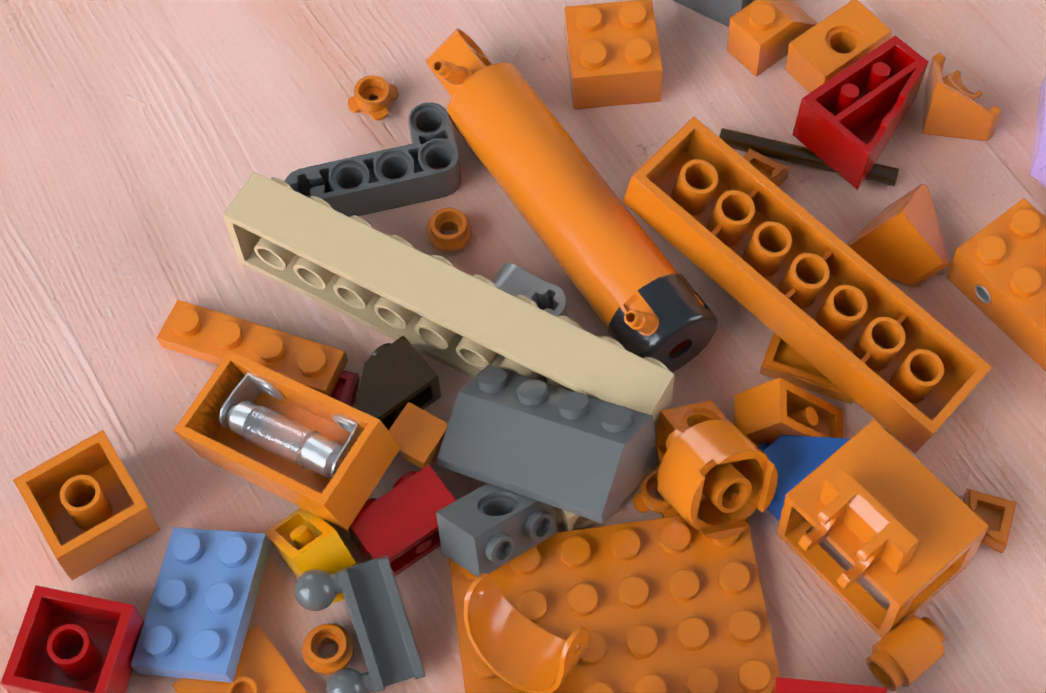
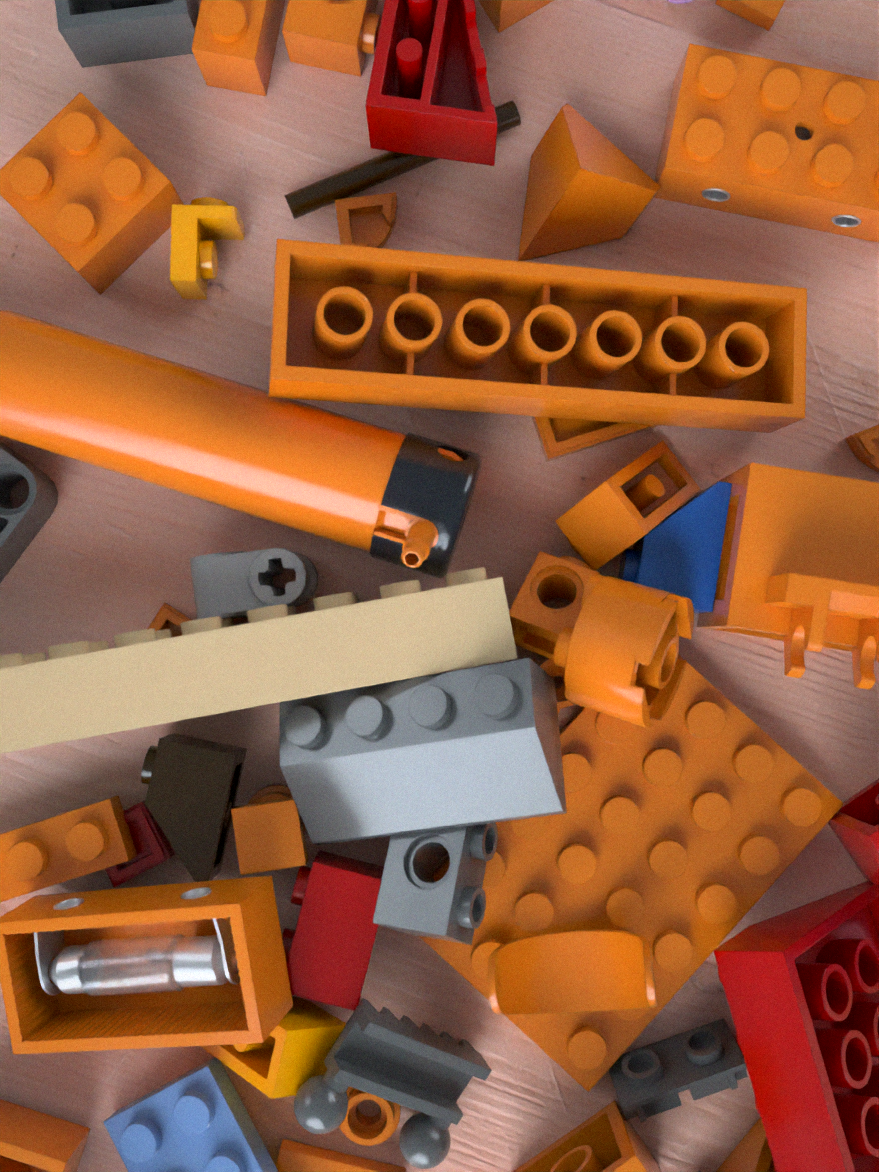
camera: 40 degrees left, 25 degrees up
(449, 219) = (75, 557): orange plate -> none
(647, 115) = (194, 245): none -> light orange bracket

